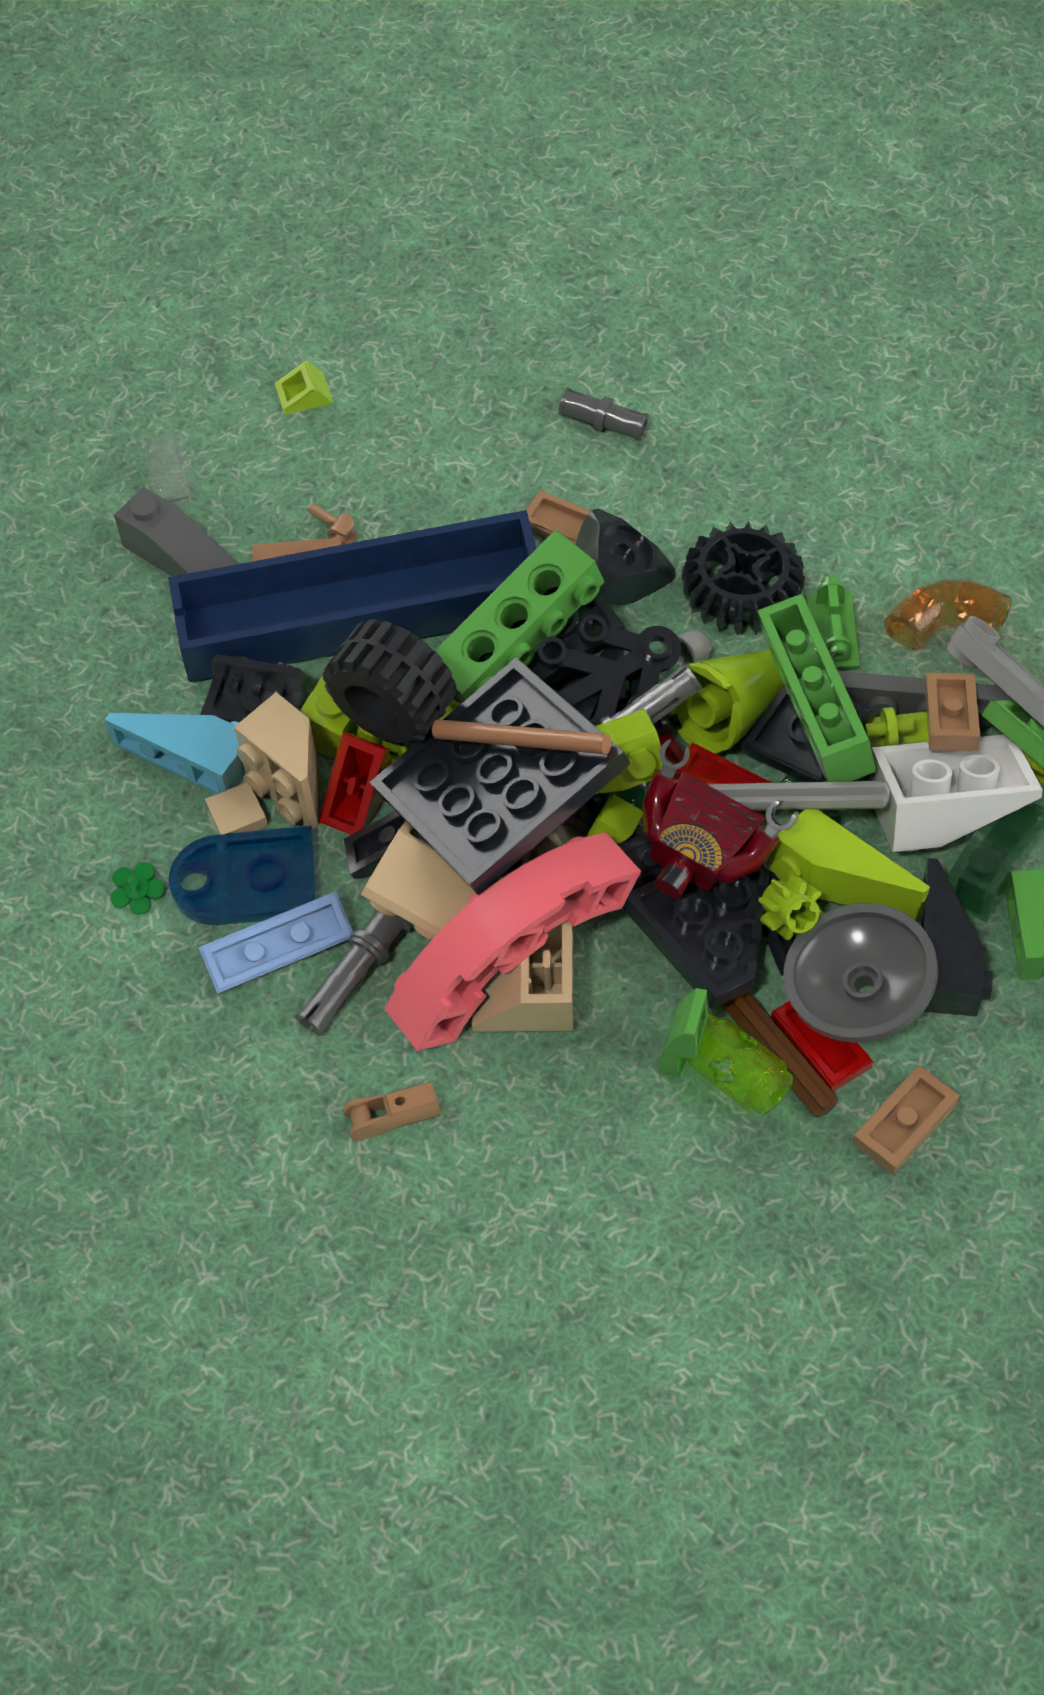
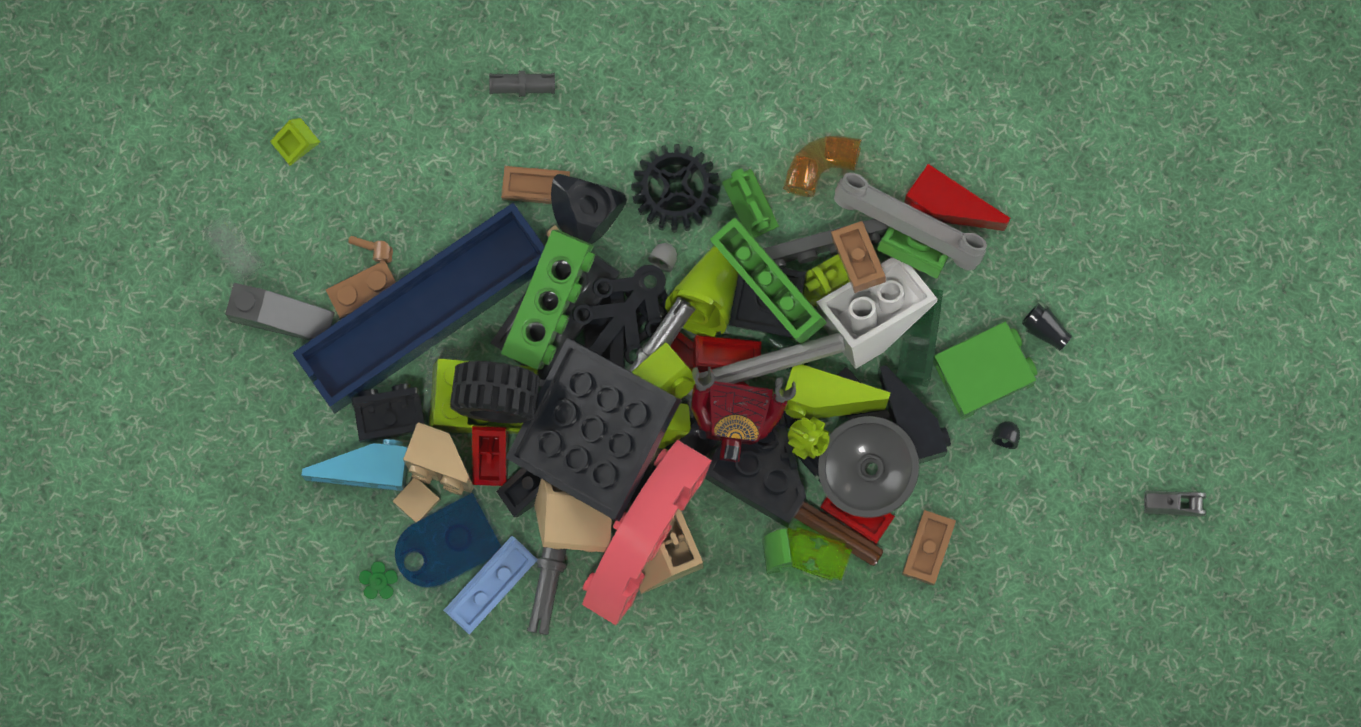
camera: 25 degrees left, 20 degrees up
(401, 1106) = (621, 663): medium nougat bar -> none
(522, 736) = (601, 403): nougat bar -> none

